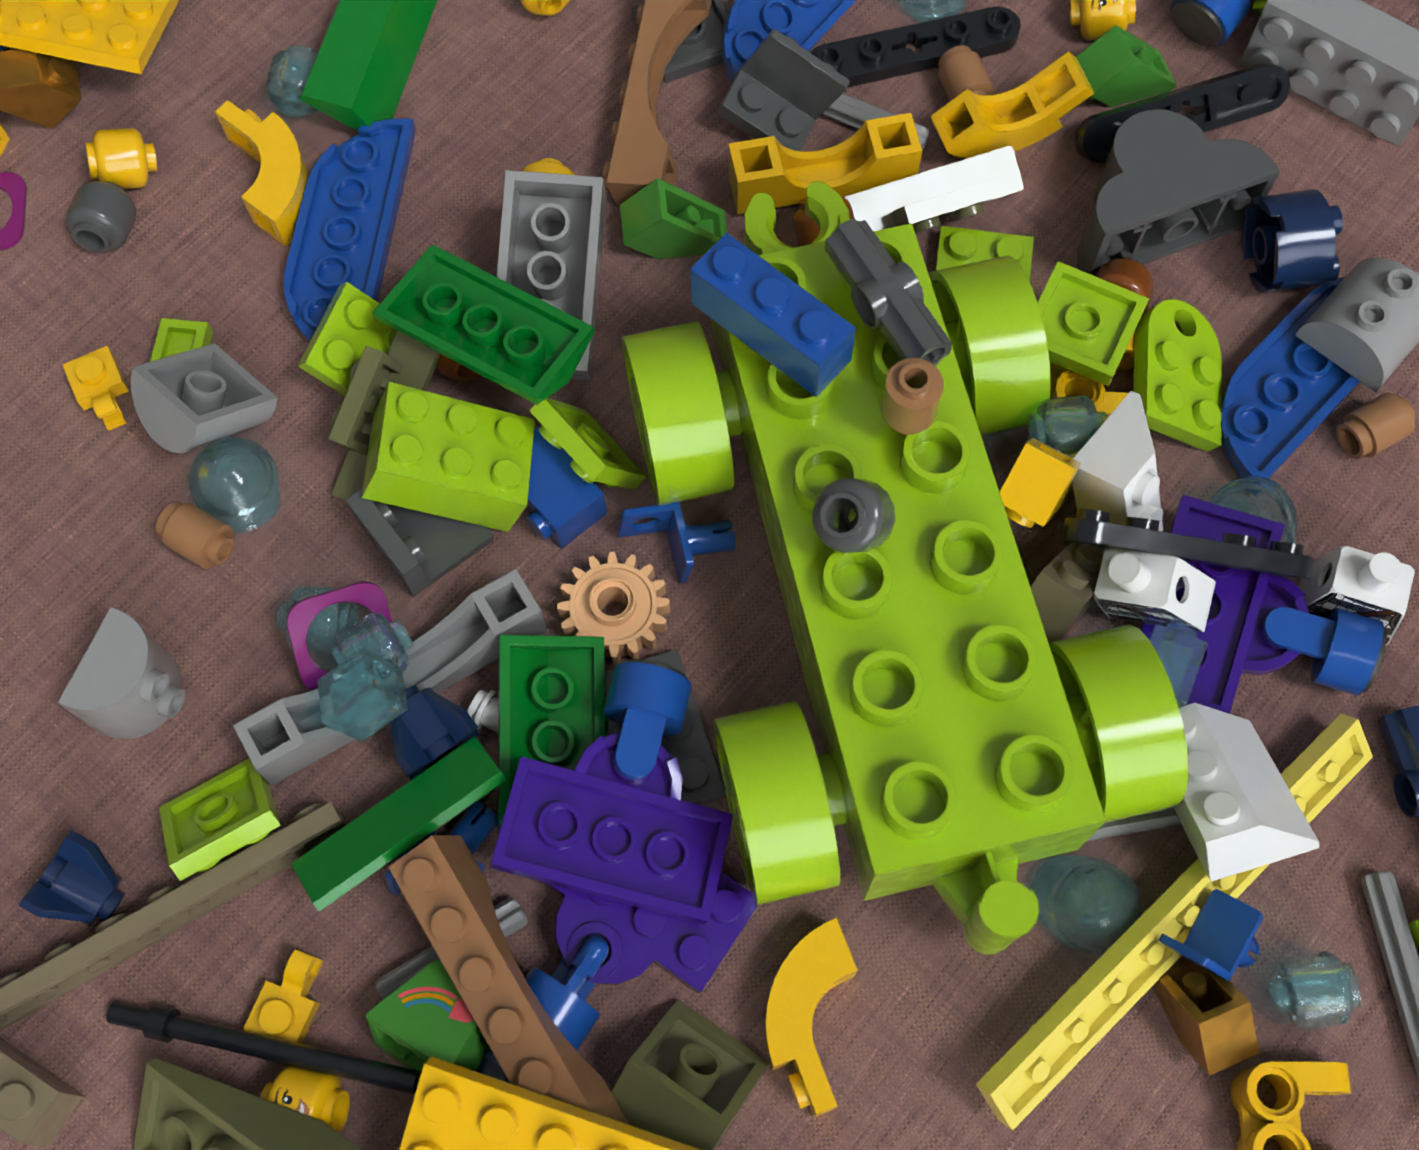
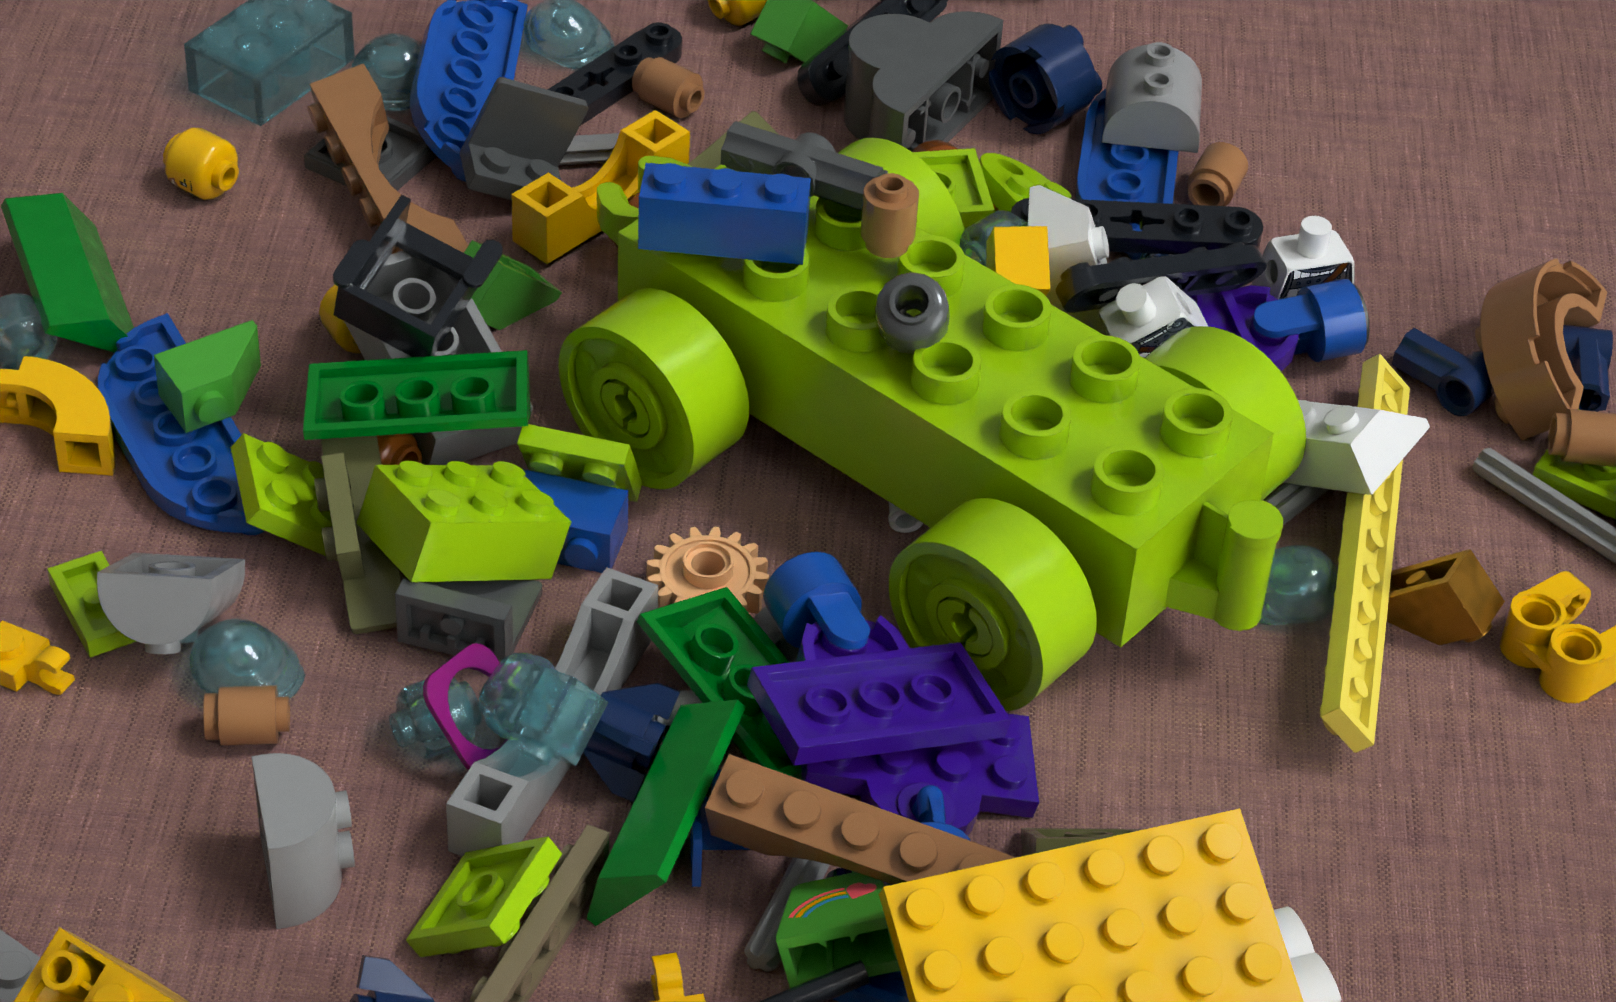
camera: 40 degrees left, 25 degrees down
(382, 204) = (208, 375): none -> bright green slope
(501, 184) = (387, 321): none -> black piece
(683, 539) = (714, 502): blue bracket -> none
(803, 979) = (1128, 773): yellow arch -> none
(1015, 118) = (742, 84): yellow arch -> none
(1221, 935) = (1407, 534): blue bracket -> none
(1273, 491) = (1167, 226): none -> black piece
(1315, 990) = (1509, 543): clear light blue head -> none

